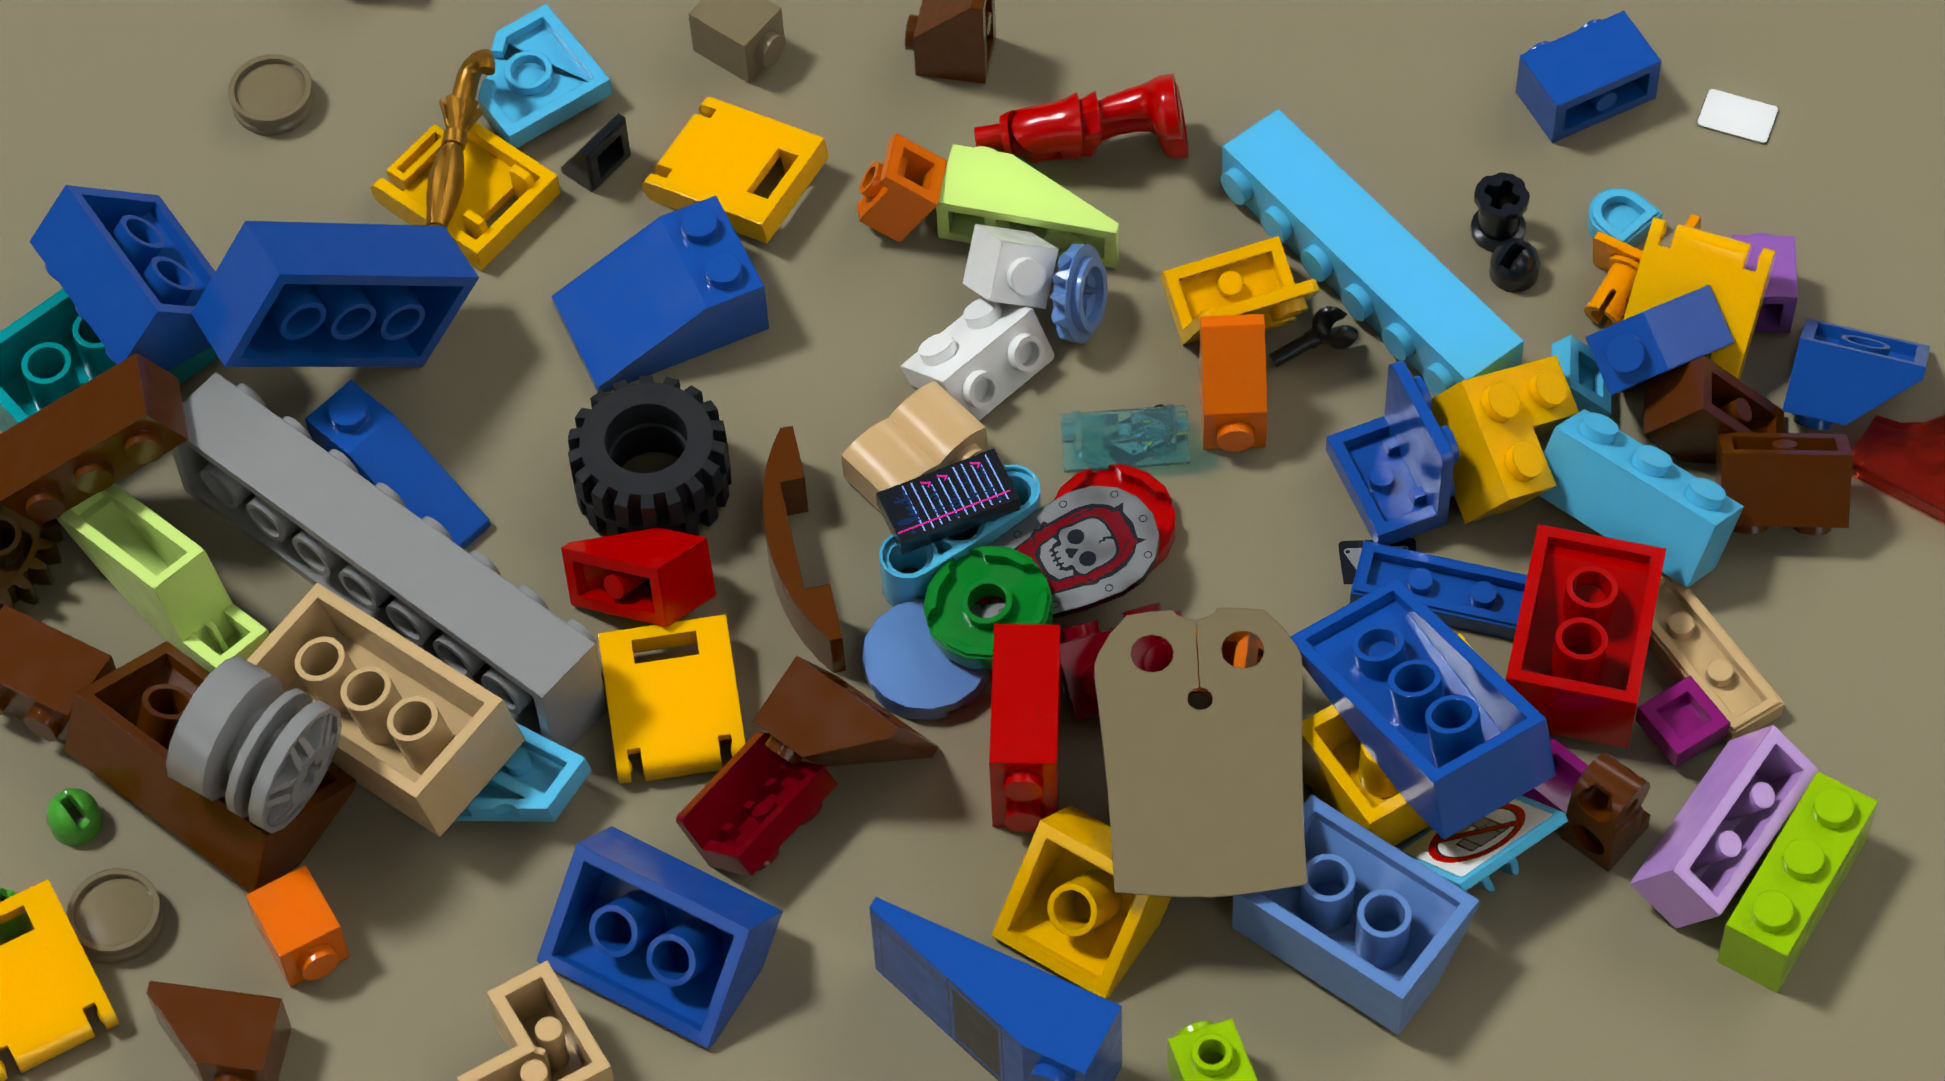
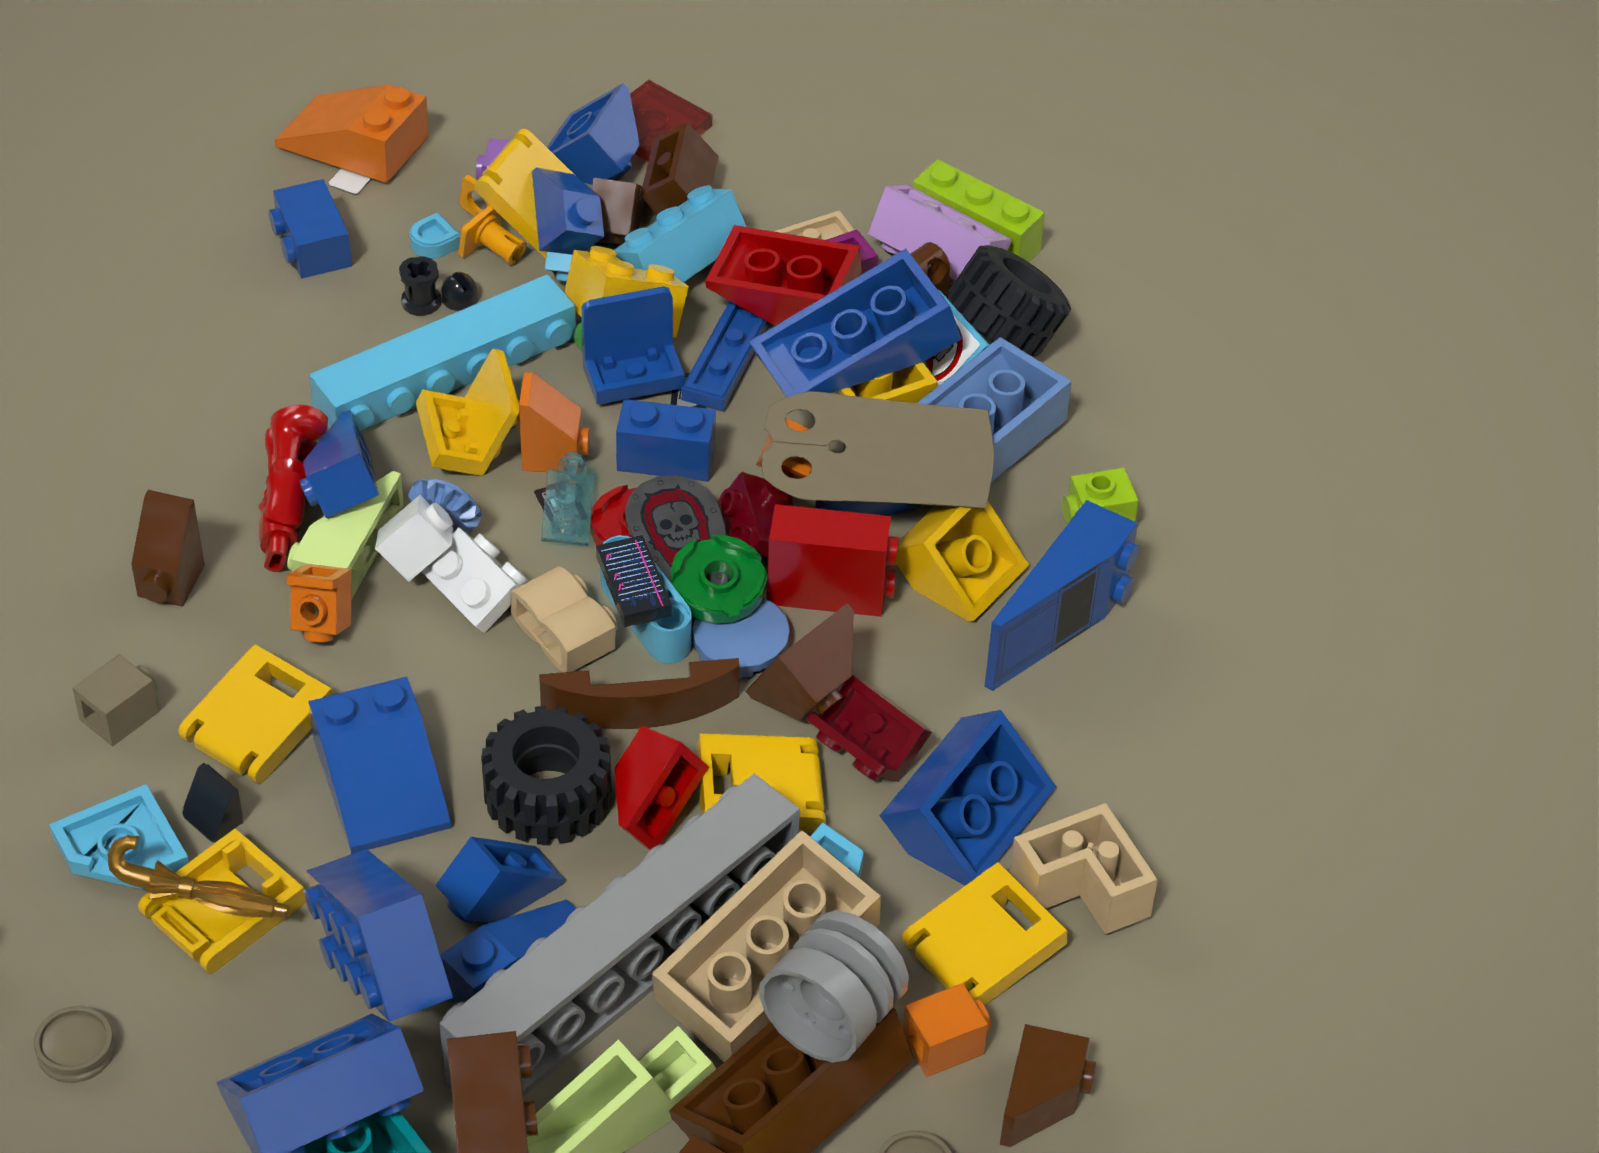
camera: 90 degrees left, 10 degrees down
(433, 957) = (979, 942): none -> yellow container
(499, 441) = (496, 879): none -> blue slope
(1117, 168) = (339, 469): none -> blue slope
(1247, 527) = (665, 439): none -> blue brick
(1622, 925) = (1009, 299): none -> black tyre
(1804, 97) = (360, 130): none -> orange slope

